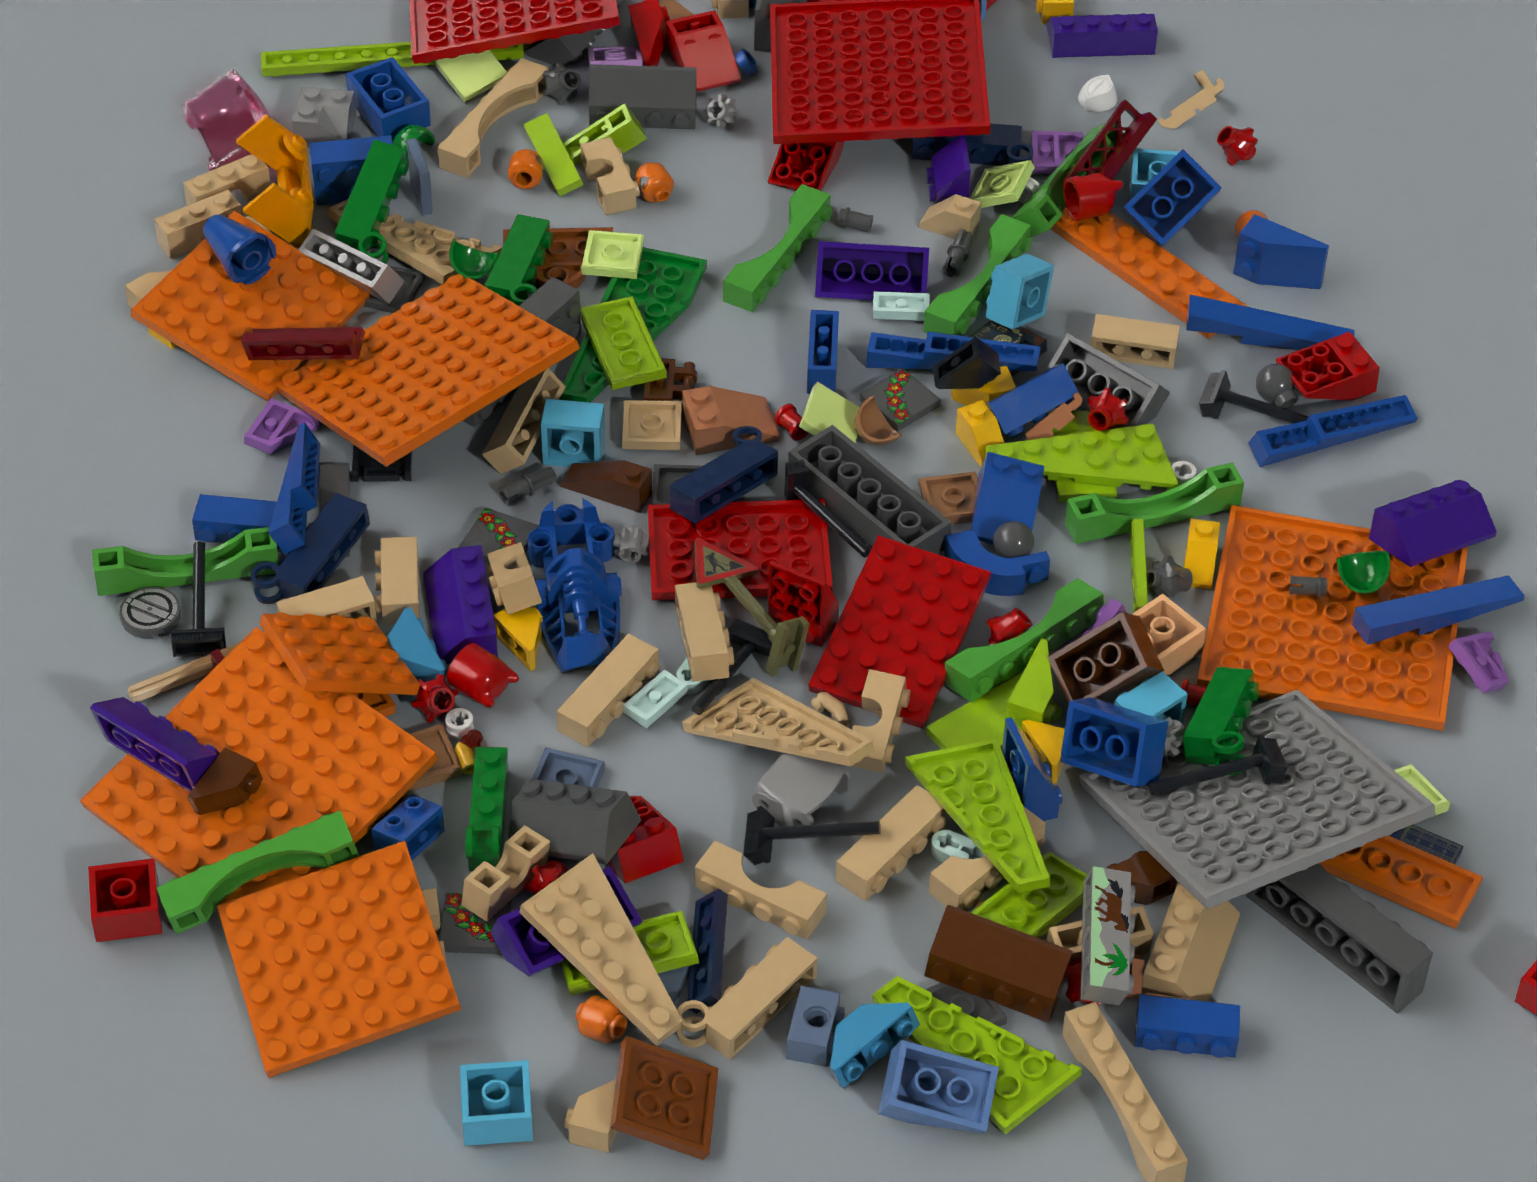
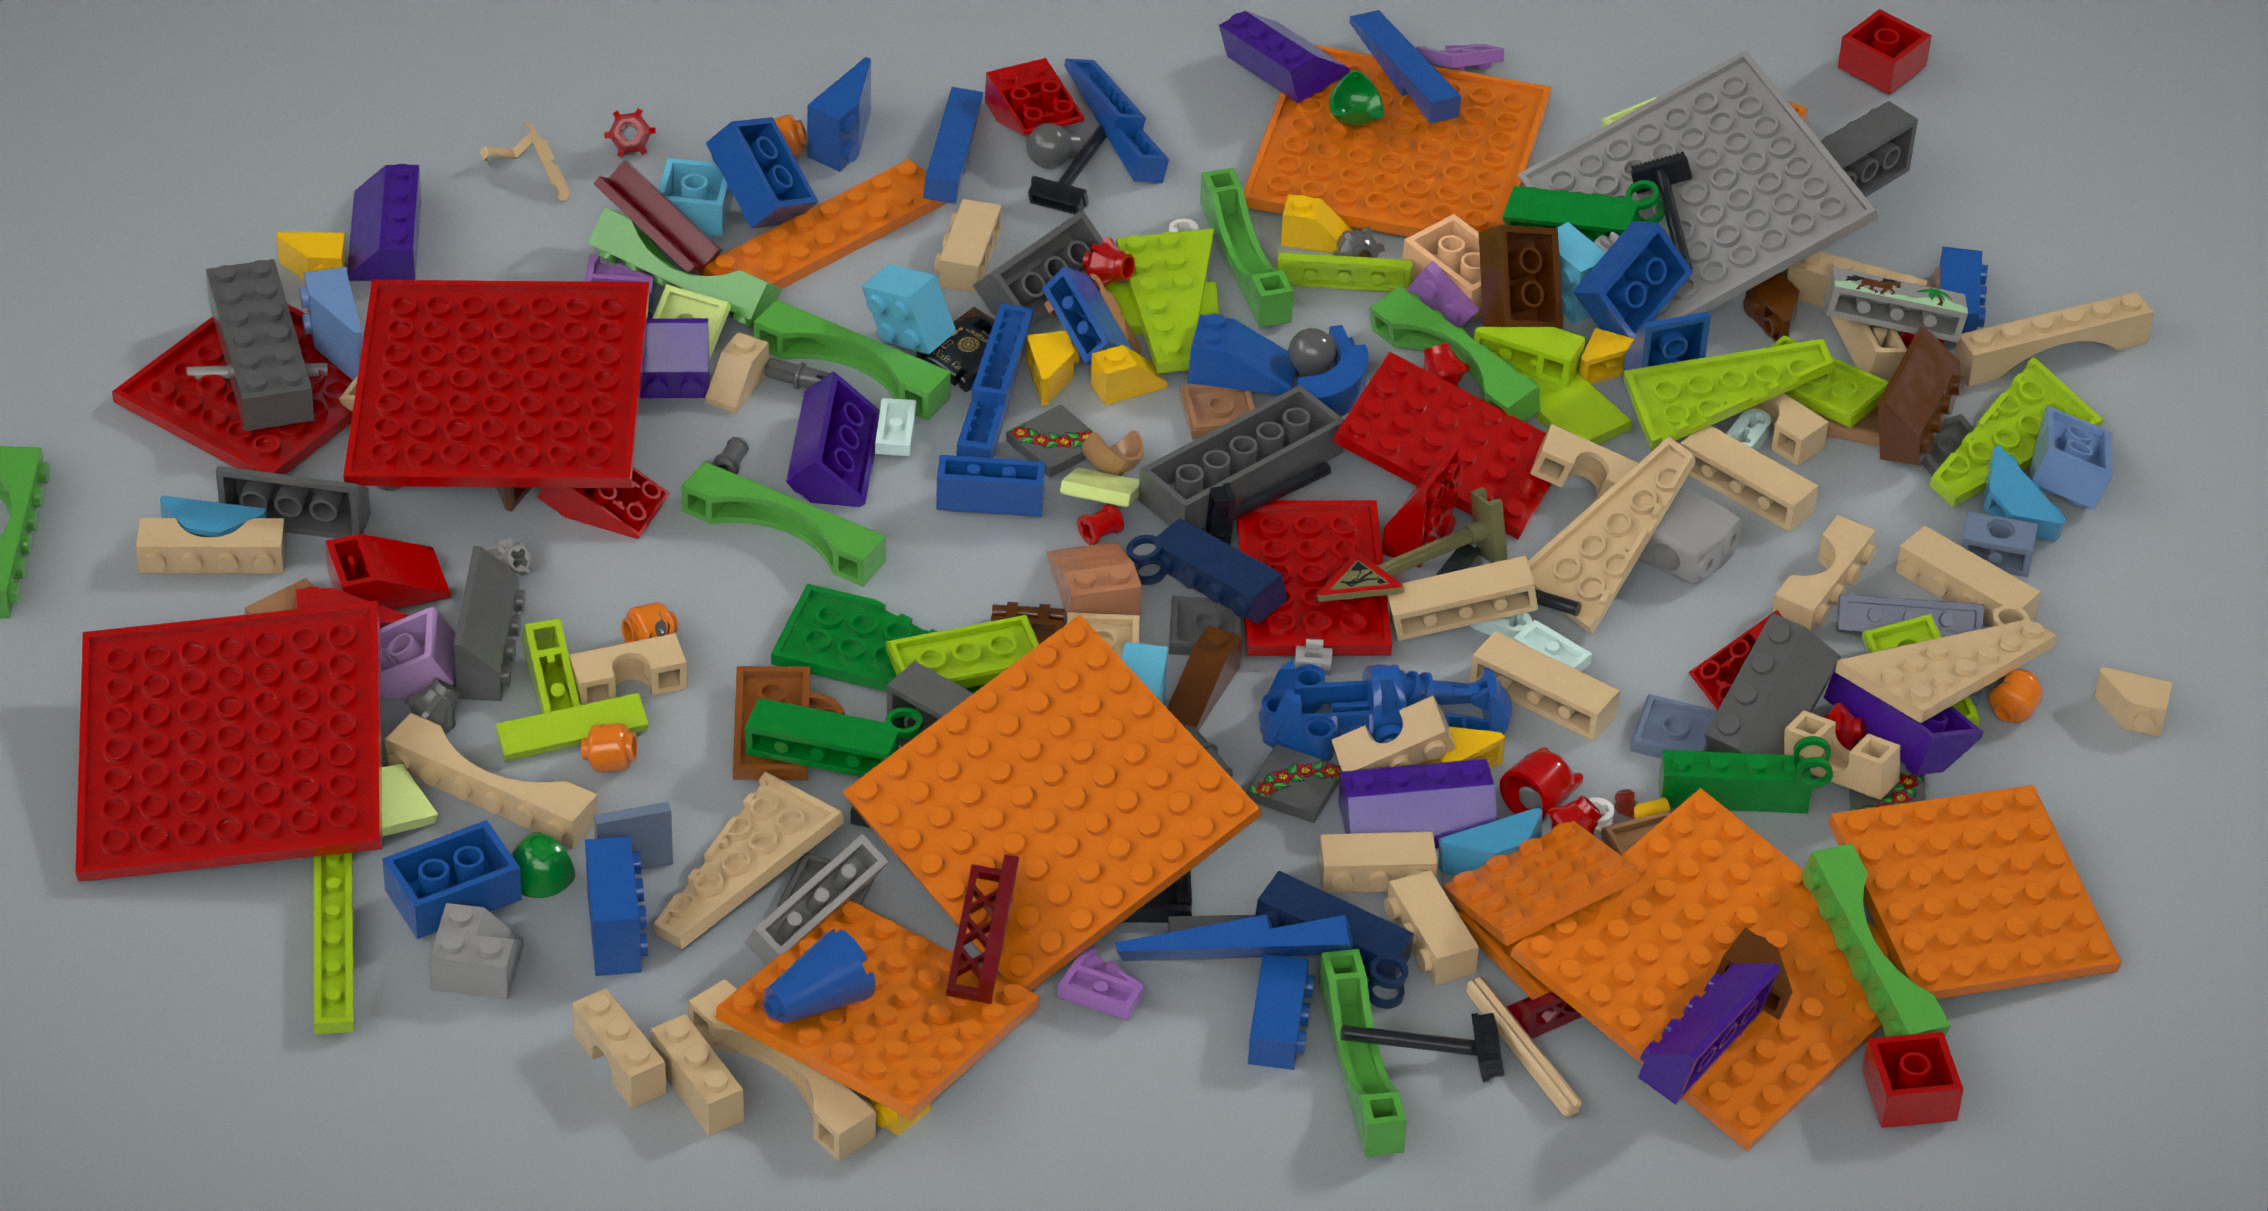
camera: 90 degrees left, 5 degrees down
(150, 612) = (1433, 1098): tile -> none
(222, 115) = (500, 1042): clear pink windscreen -> none
(289, 205) = (664, 954): light orange windscreen -> none
(370, 199) = (712, 863): green hinge -> none
(412, 821) = (1787, 832): blue brick -> none
(470, 261) = (827, 774): green helmet -> none
(496, 1102) = (2143, 769): medium azure brick -> none
(612, 254) = (797, 662): yellowish green tile -> none
(664, 1098) = (2118, 644): dark orange plate -> none
(746, 61) = (406, 534): blue tile -> none
(761, 833) = (1748, 573): black piece -> none
(834, 706) = (1554, 513): tan arm -> none
(967, 367) = (1049, 355): black slope -> none
(1090, 195) = (742, 240): red piece -> none
(1098, 94) = (503, 243): white hat -> none
(1310, 586) = (1375, 142): dark grey pin -> none

